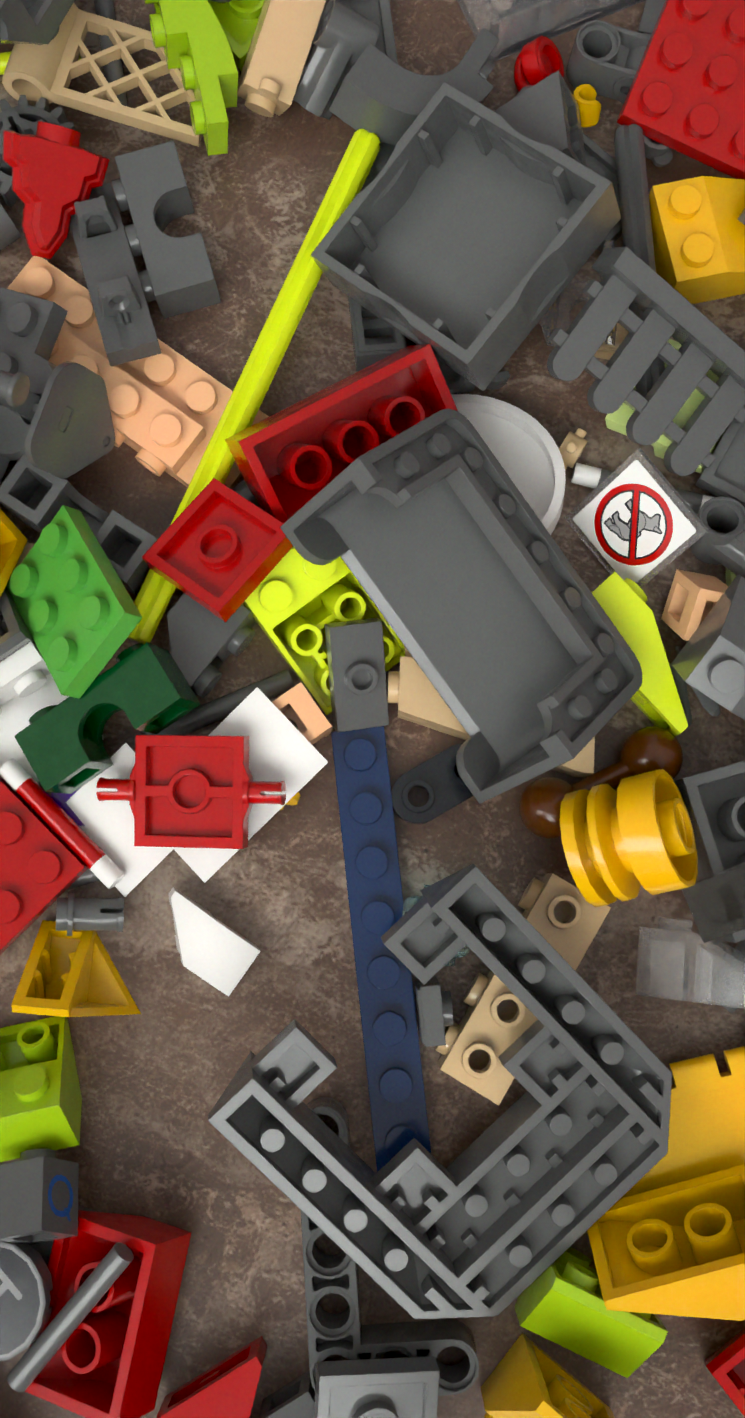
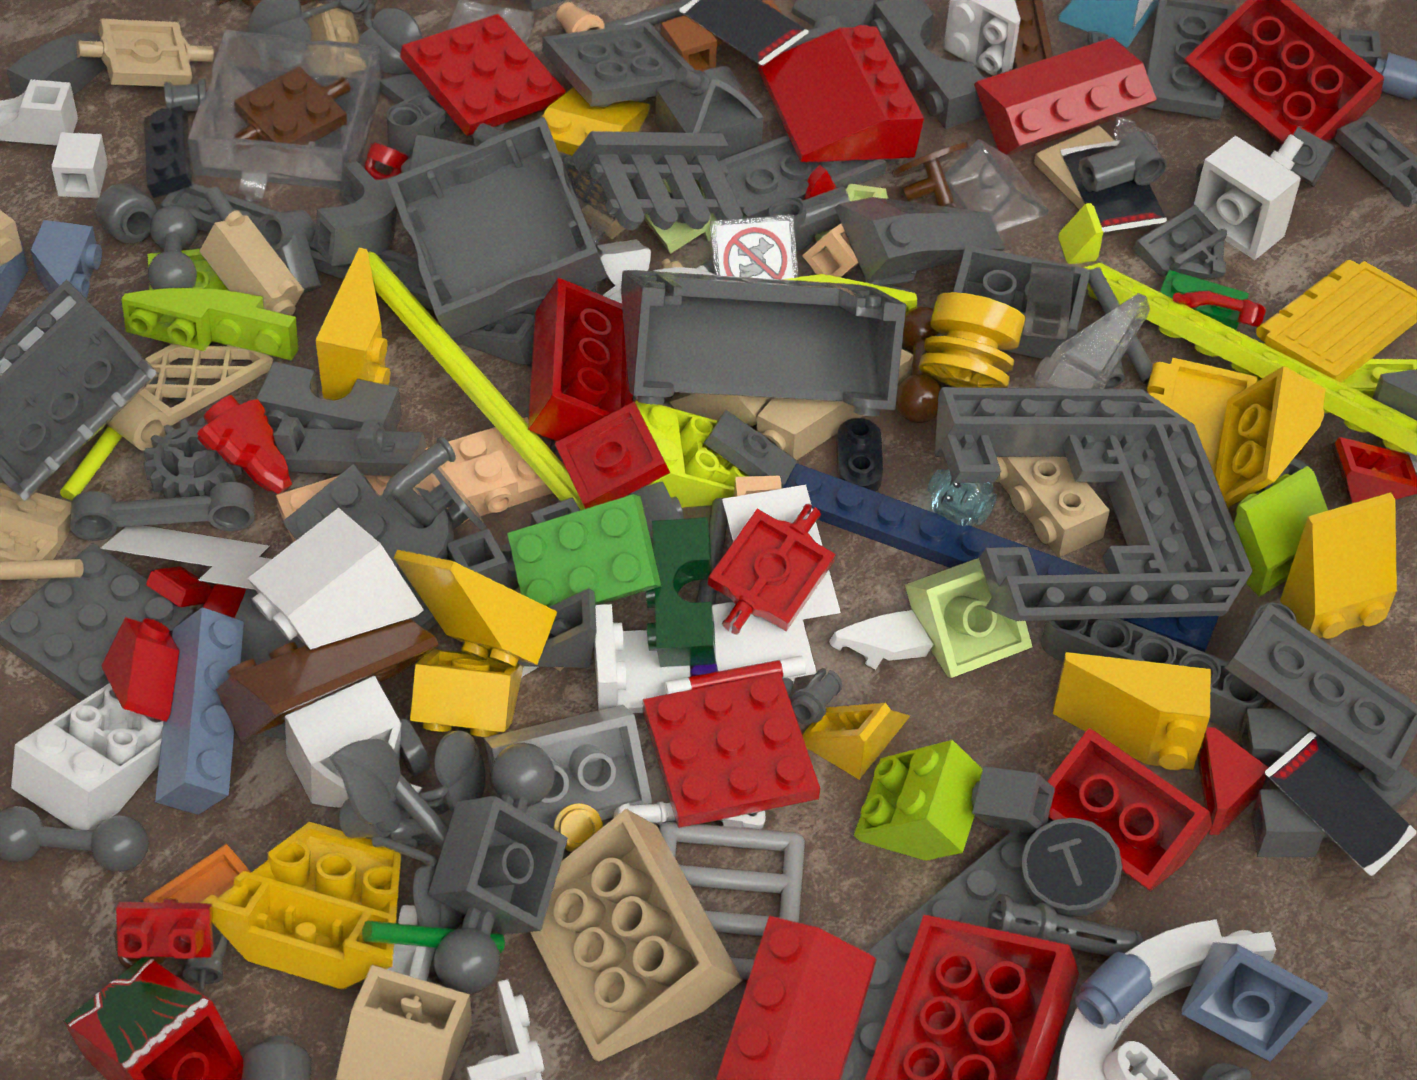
camera: 65 degrees left, 30 degrees down
(70, 1317) = (1112, 813): dark grey bar -> none
(246, 1298) = (1138, 706): none -> yellow slope
(261, 190) = (351, 335): none -> yellow slope
(277, 989) = (959, 624): none -> yellowish green slope
(433, 1012) = (1020, 511): dark grey plate -> none
(545, 396) = (623, 256): none -> white tile

